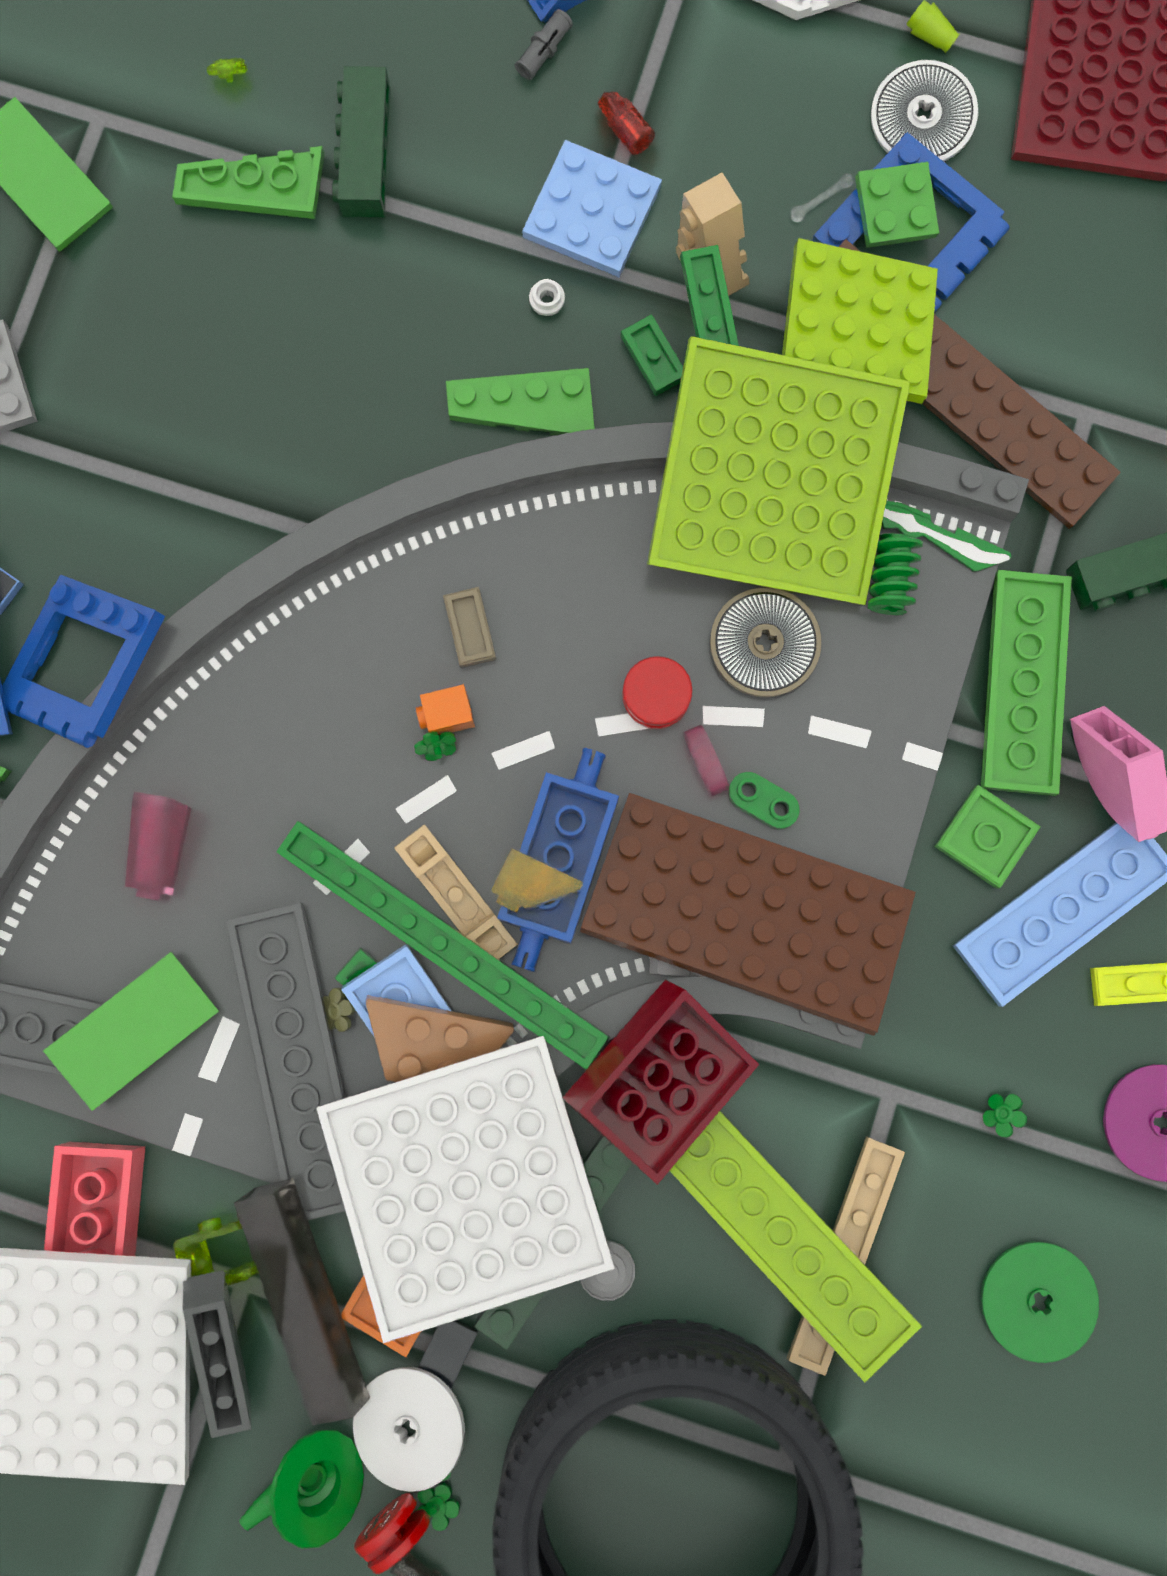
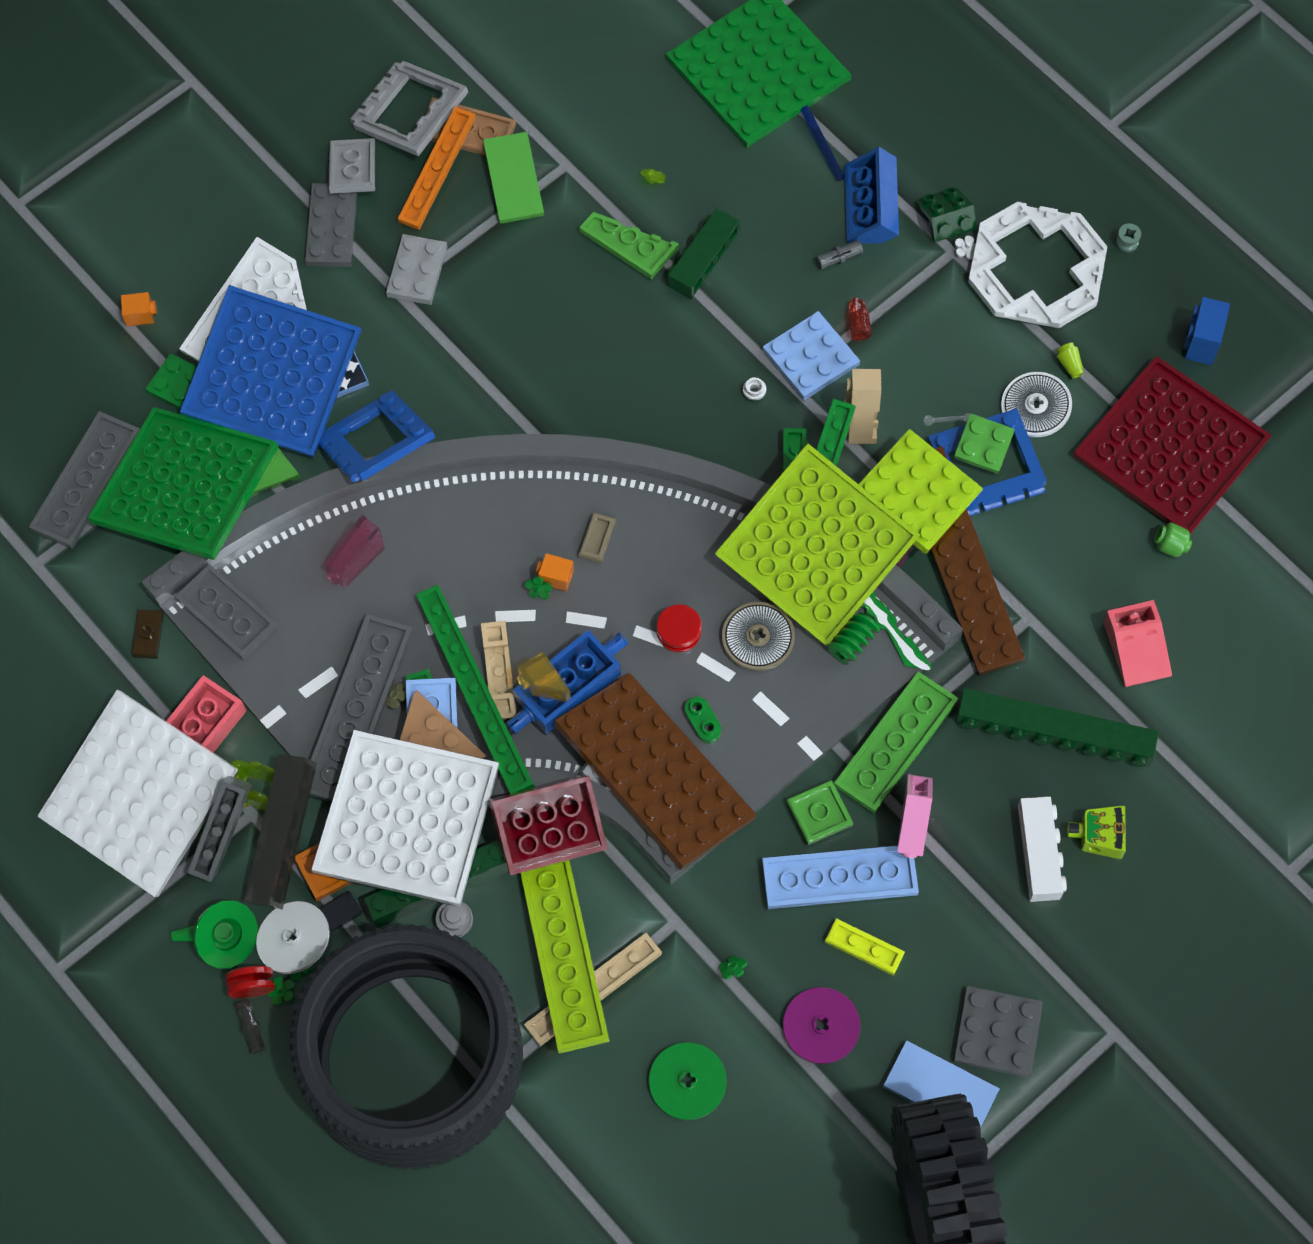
camera: 30 degrees right, 15 degrees down
(131, 1031) = (280, 641): bright green tile -> none
(531, 401) = (706, 437): bright green wing -> none
(706, 760) = (683, 678): clear pink beam -> none

